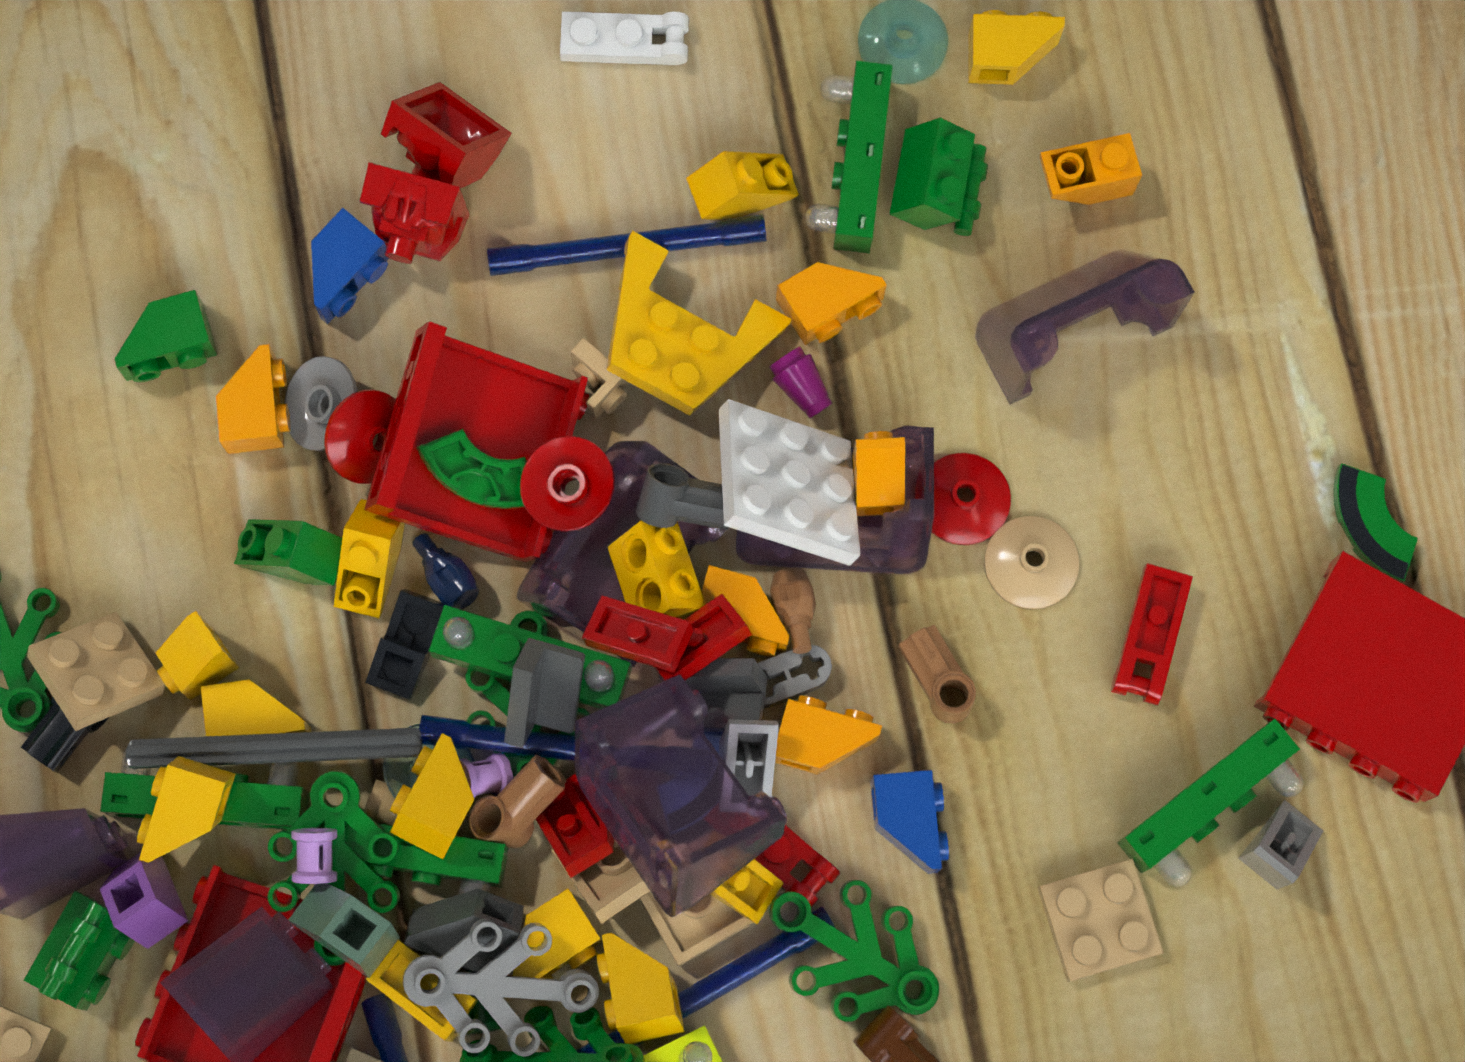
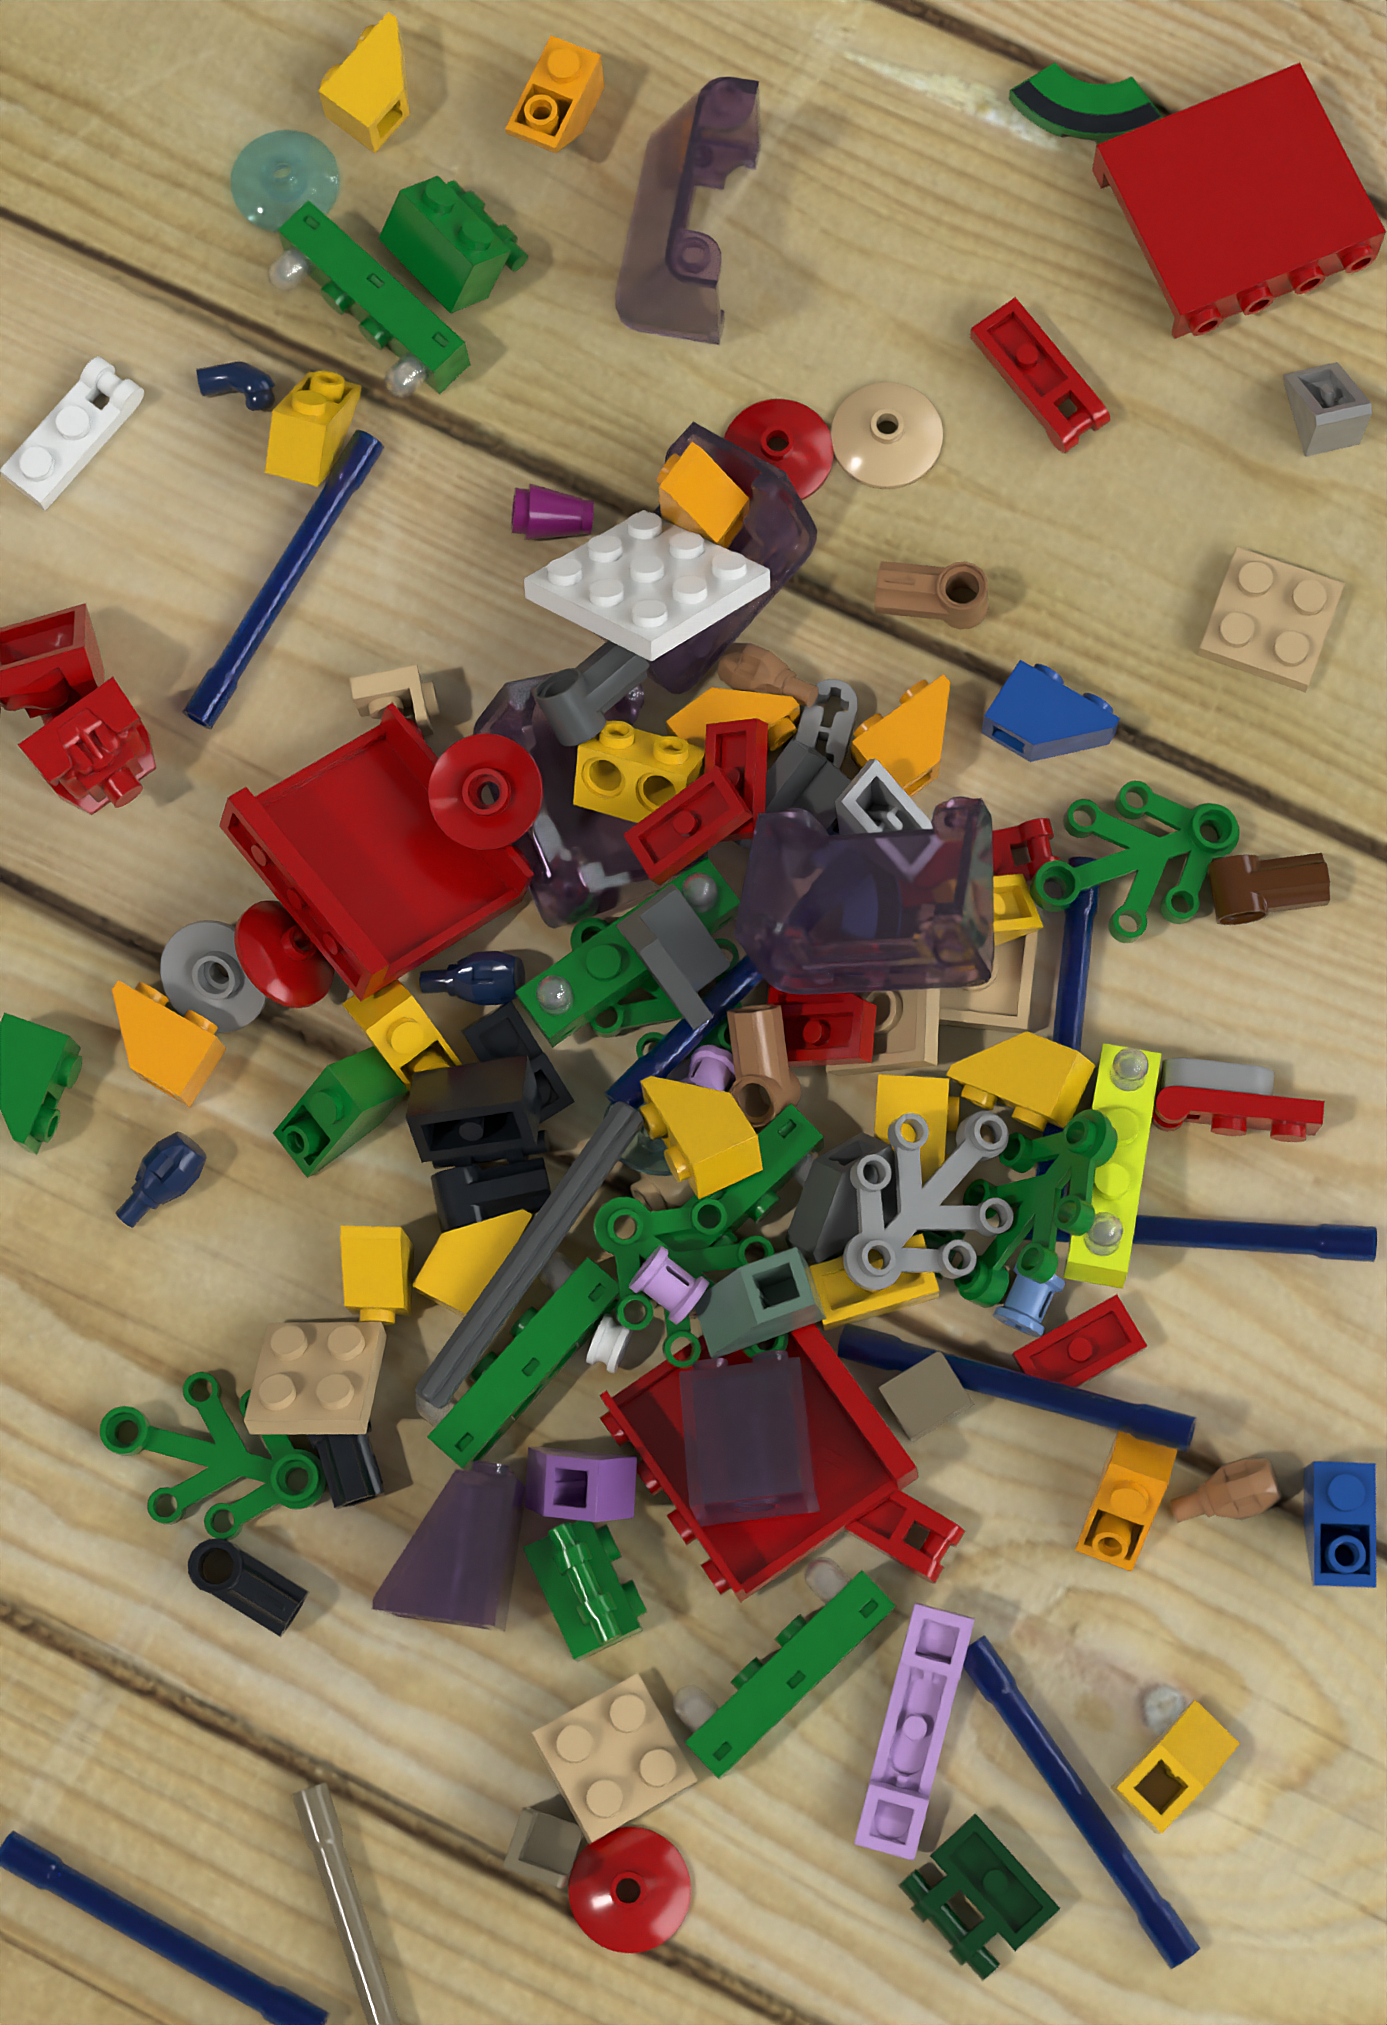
camera: 40 degrees left, 0 degrees up
(166, 471) = (163, 1176): none -> dark blue piece
(187, 806) = (529, 1374): yellow slope -> none
(256, 844) = (609, 1344): none -> white bush
(297, 684) = (478, 1194): none -> black piece
(343, 262) = (84, 854): blue slope -> none
(346, 640) = (476, 1113): none -> black brick
(473, 473) = (405, 875): green tile -> none
(671, 348) = (422, 606): yellow wing -> none
(743, 116) = (241, 378): none -> dark blue arm
(827, 297) = (484, 431): light orange slope -> none
(1222, 786) = (1230, 435): green piece -> none

